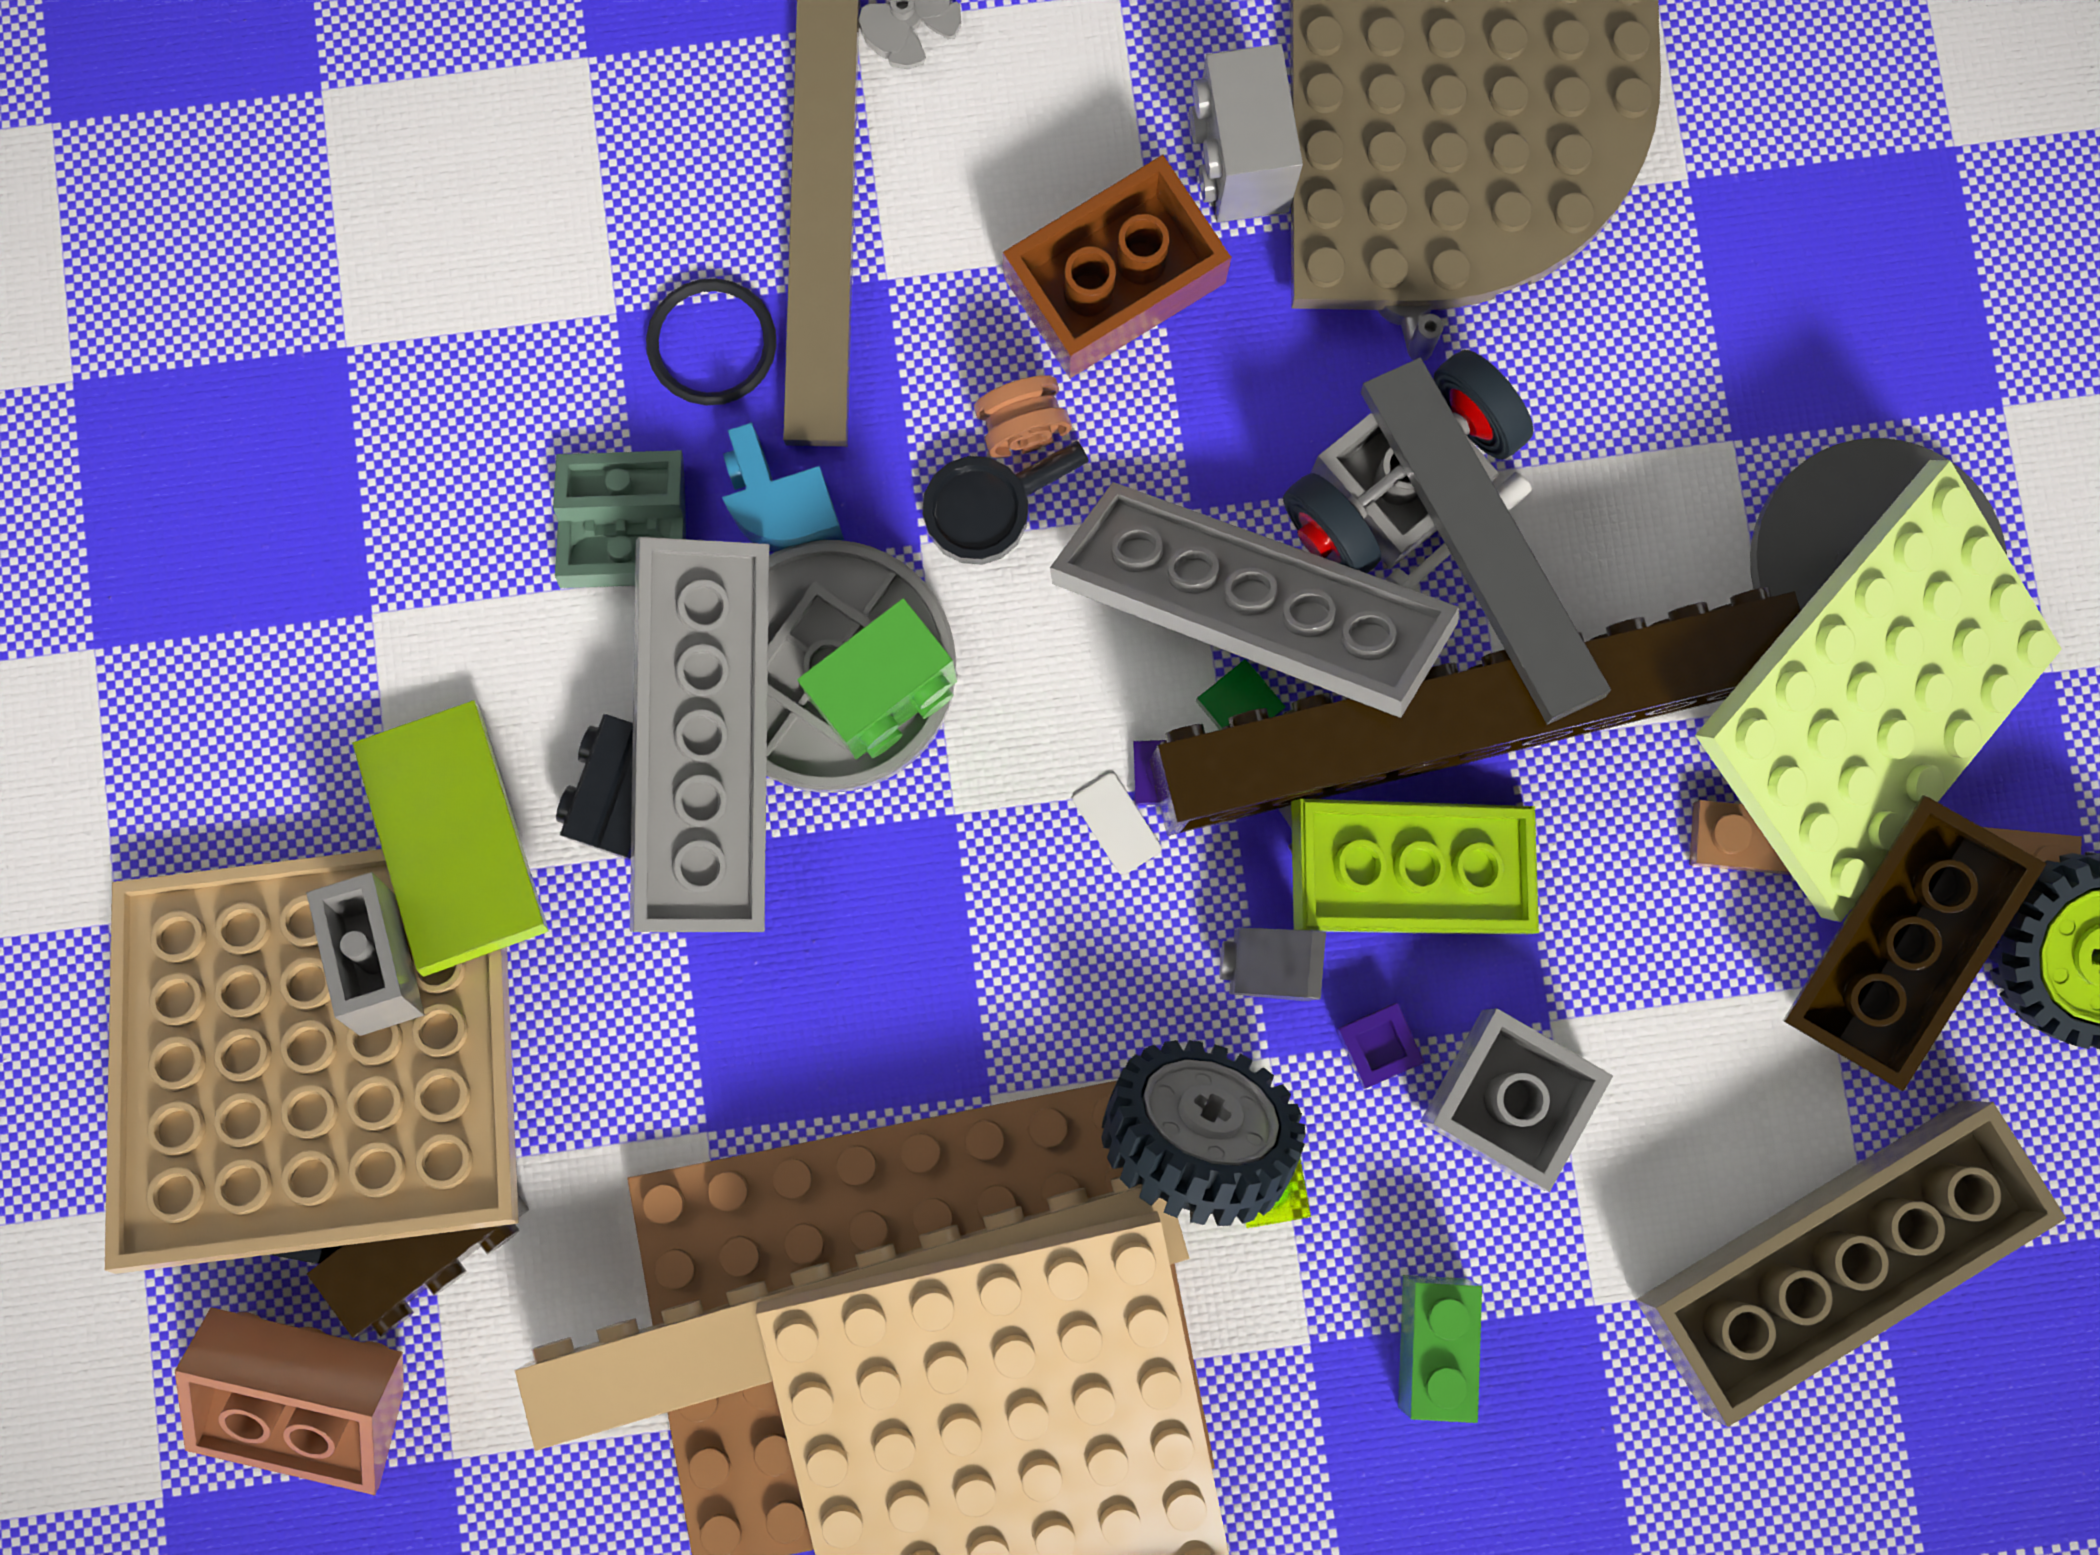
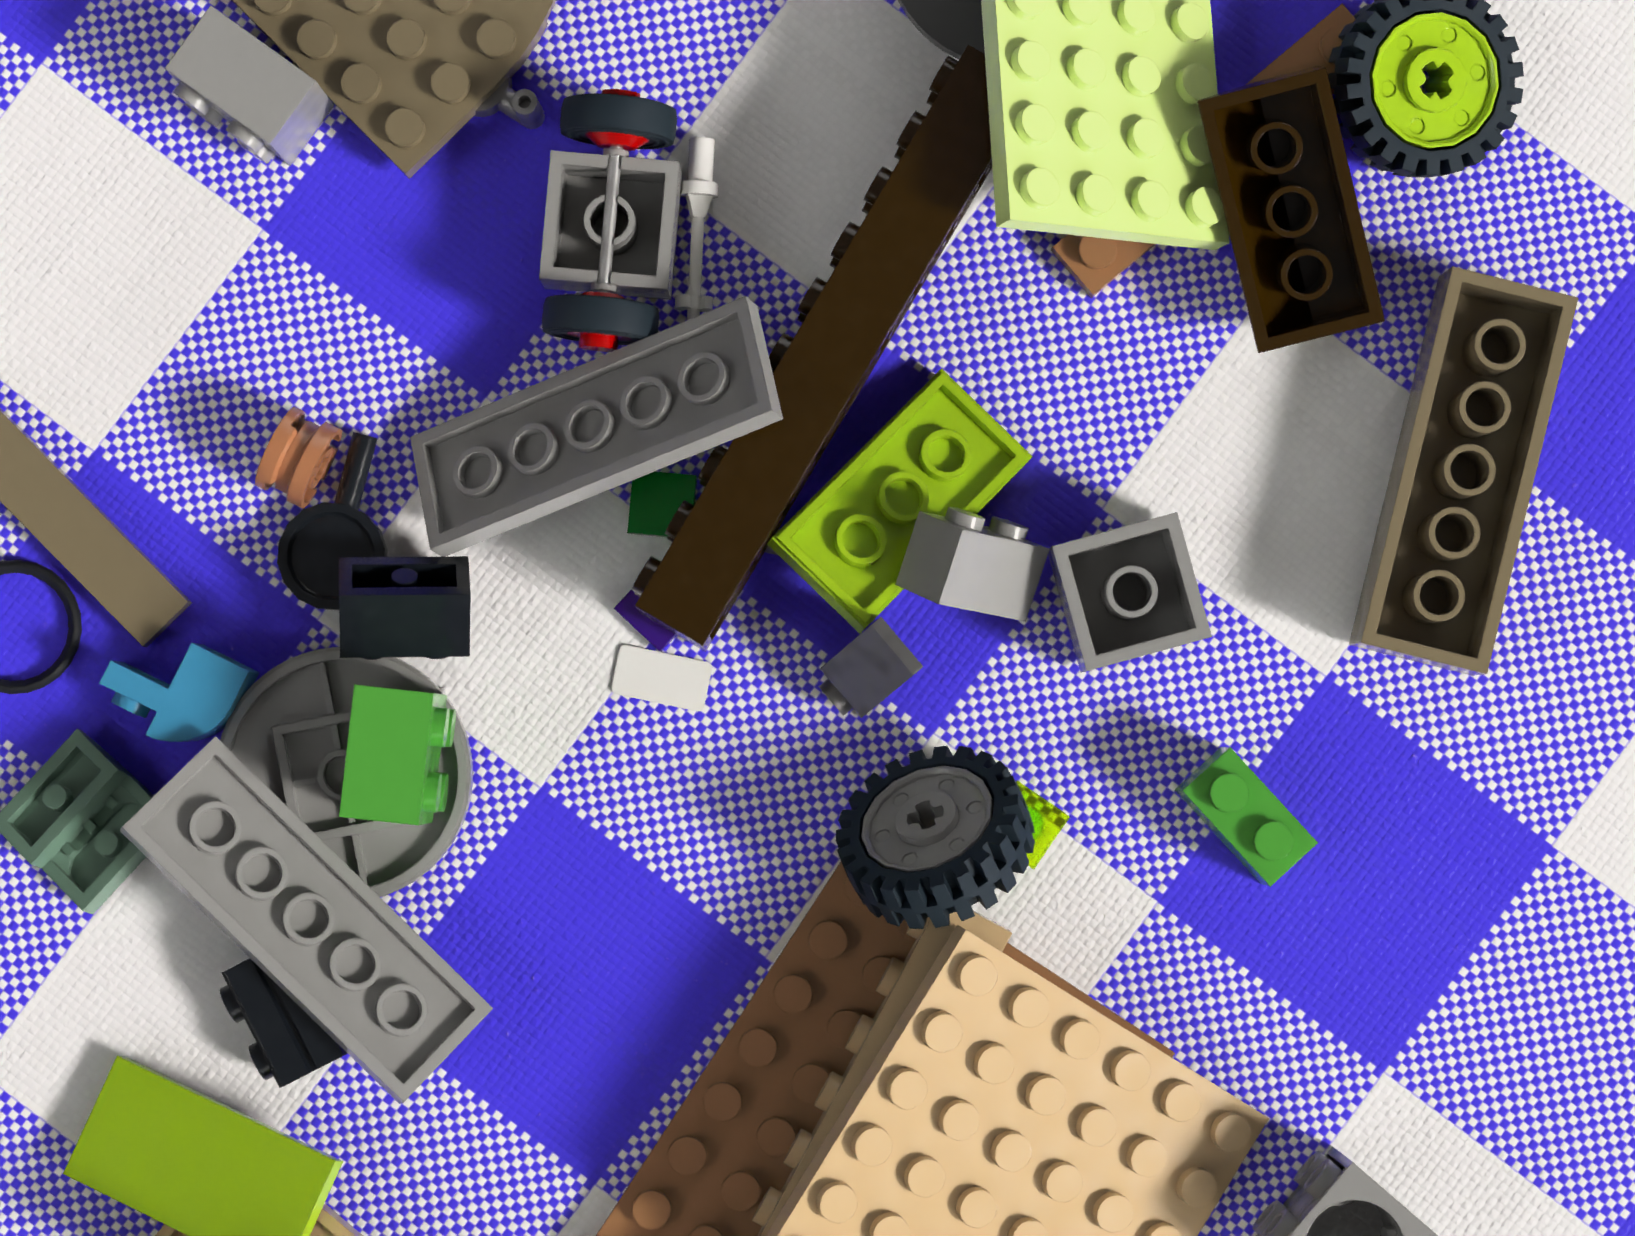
camera: 45 degrees left, 5 degrees up
(989, 590) = (404, 607): none -> black brick
(1116, 266) = (253, 280): dark orange brick -> none
(1380, 1045) = (1000, 649): dark purple plate -> none
(1423, 964) = (973, 565): none -> light grey brick
(1485, 541) = (715, 227): dark grey tile -> none

